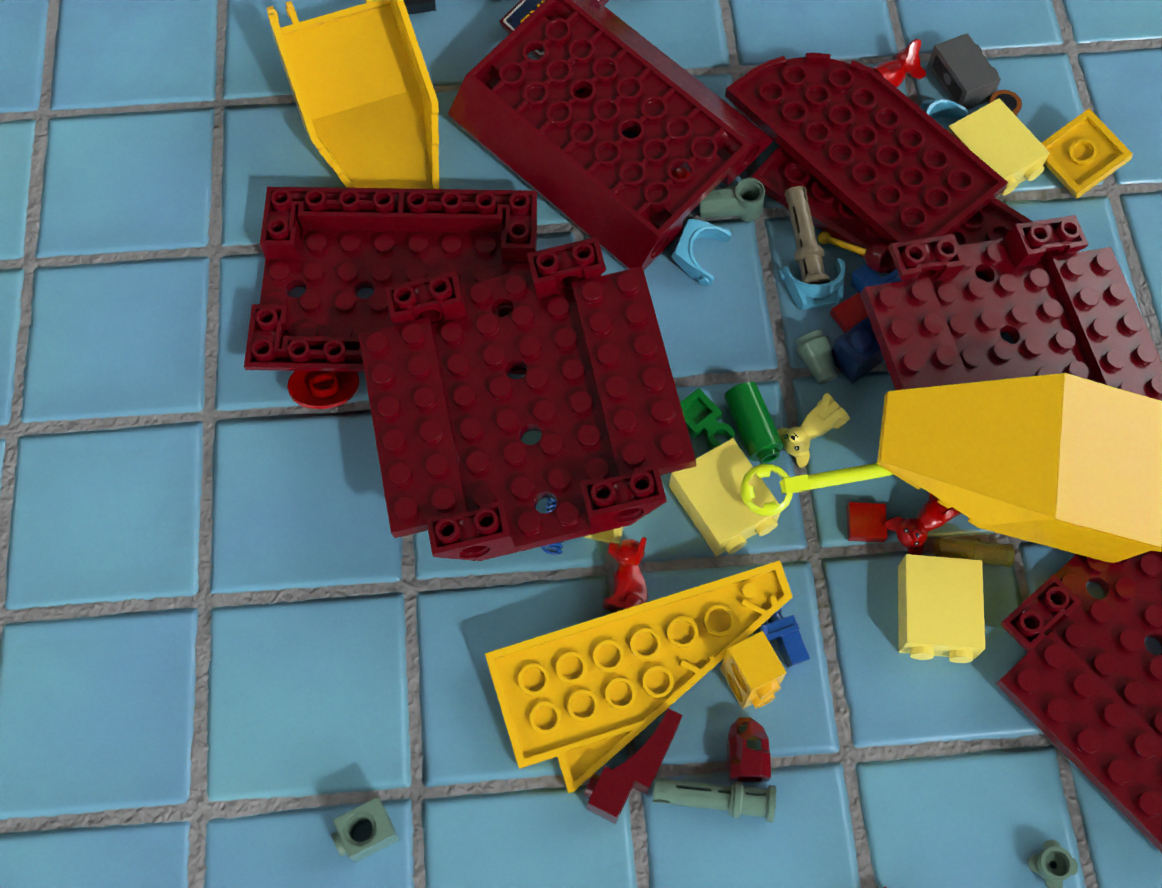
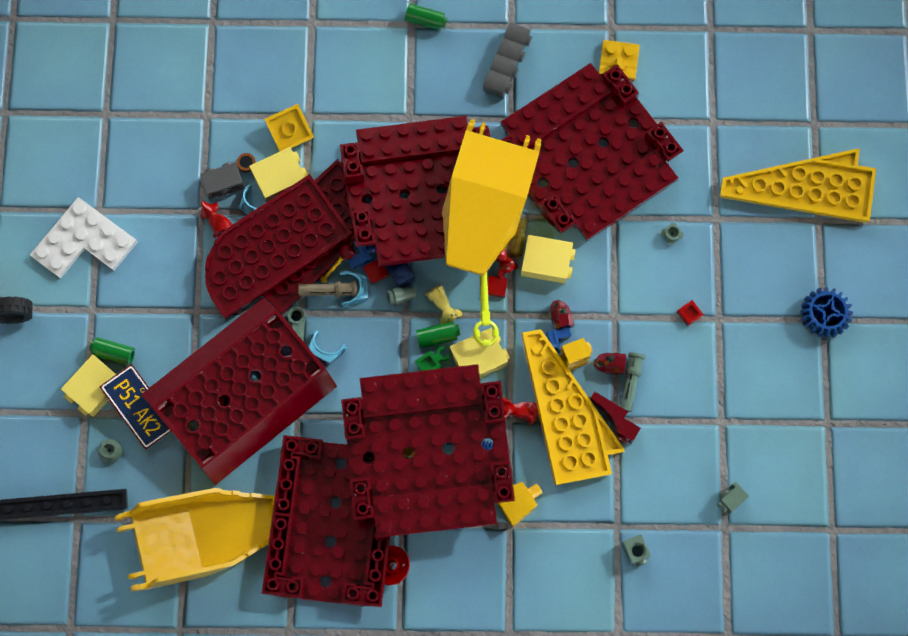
camera: 85 degrees left, 10 degrees up
(449, 593) = (523, 503): none -> yellow torso
(831, 645) = (561, 315): none -> dark red rock

